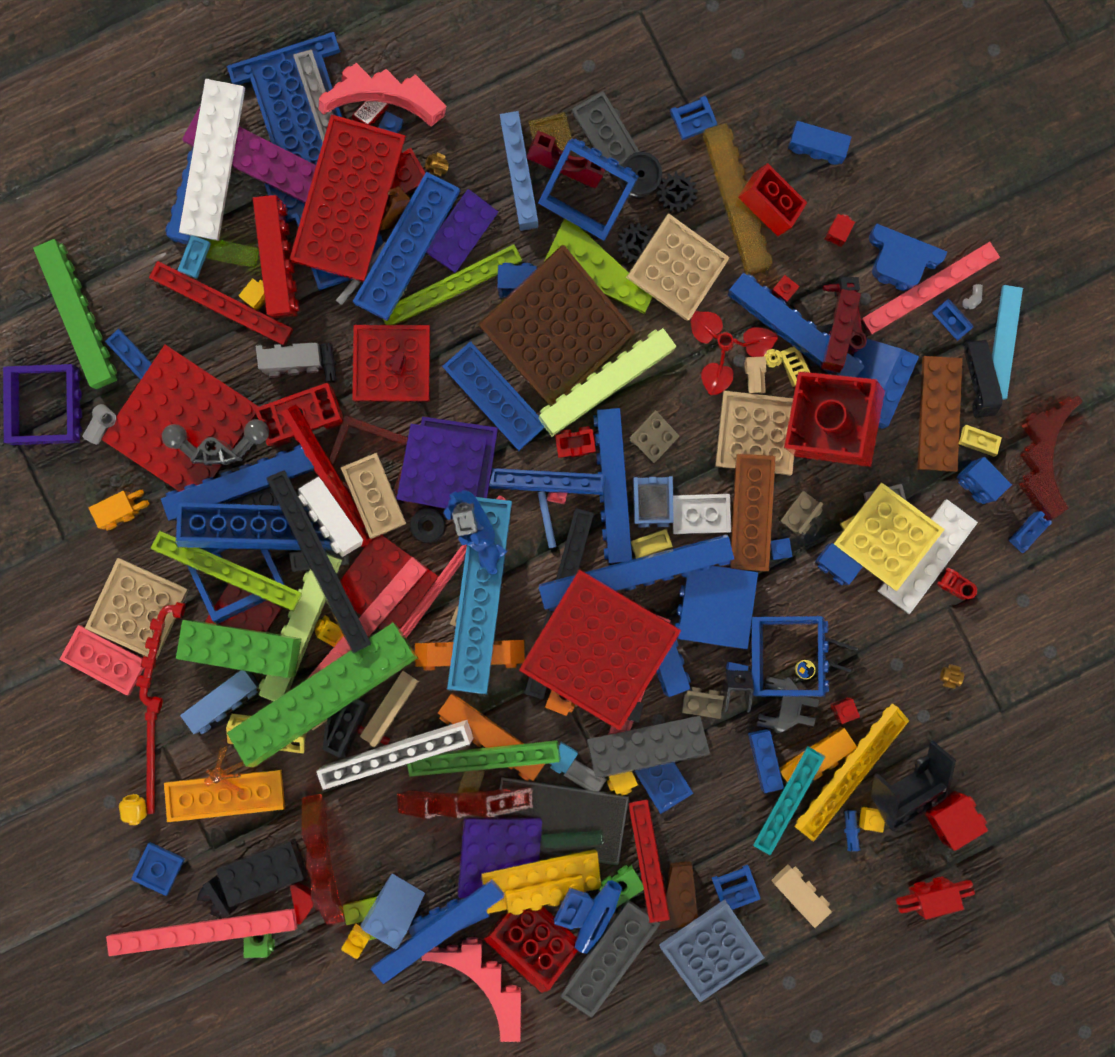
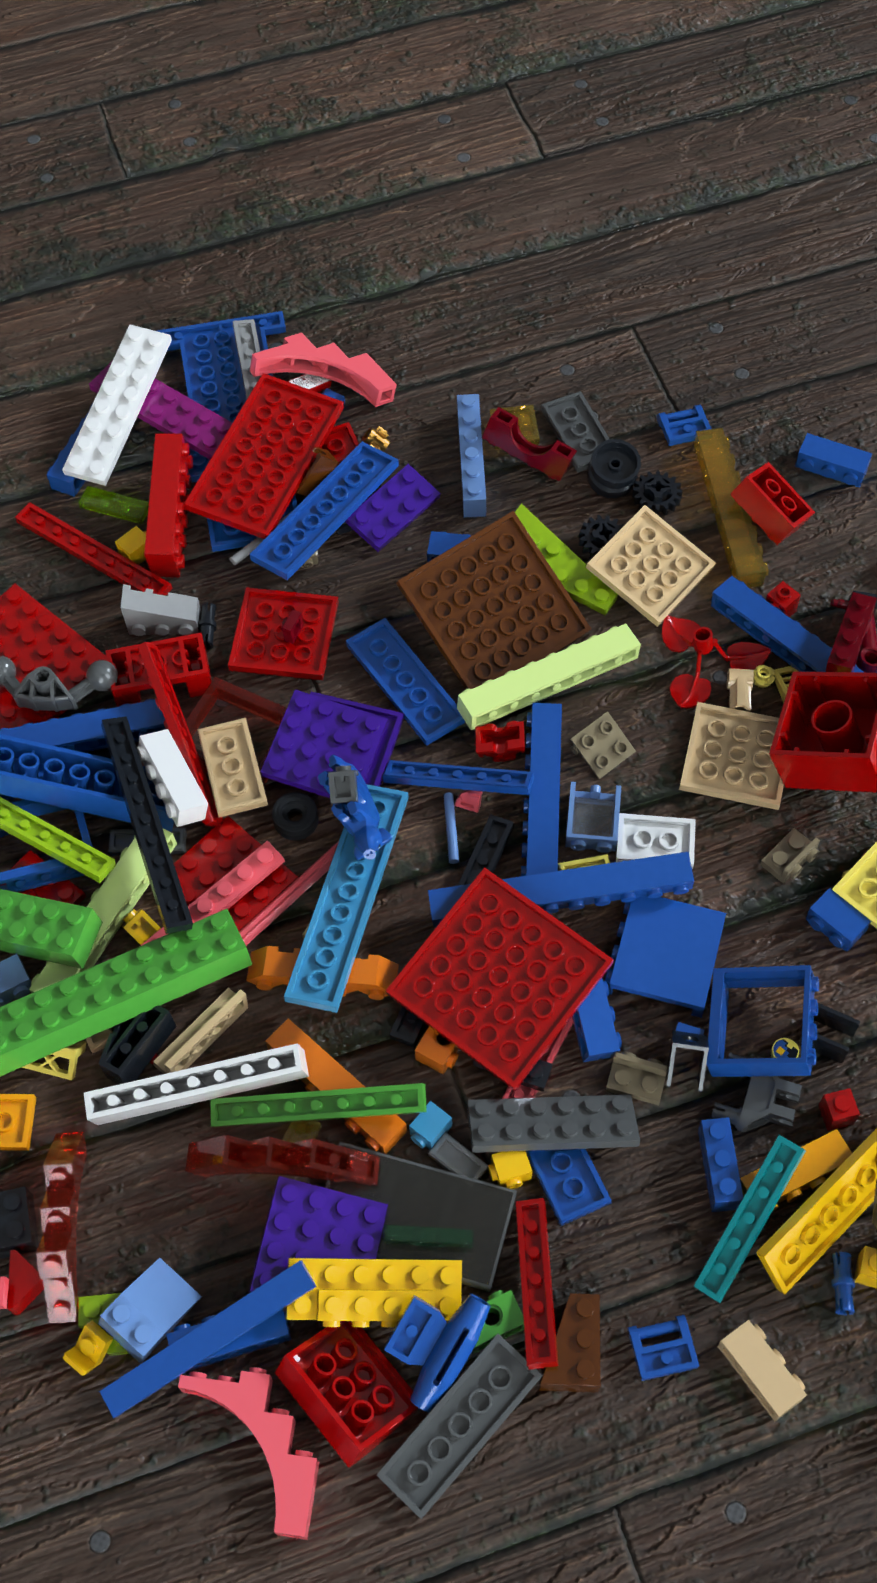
camera: 10 degrees right, 25 degrees down
(194, 256) = (73, 500): dark azure plate -> none
(452, 285) = (359, 566): lime tile -> none
(574, 215) = (585, 491): blue window -> none
(711, 951) = (618, 1431): sand blue plate -> none
(752, 512) = (724, 841): dark orange plate -> none
(780, 549) = (759, 896): blue plate -> none
(840, 230) = (854, 548): red brick -> none

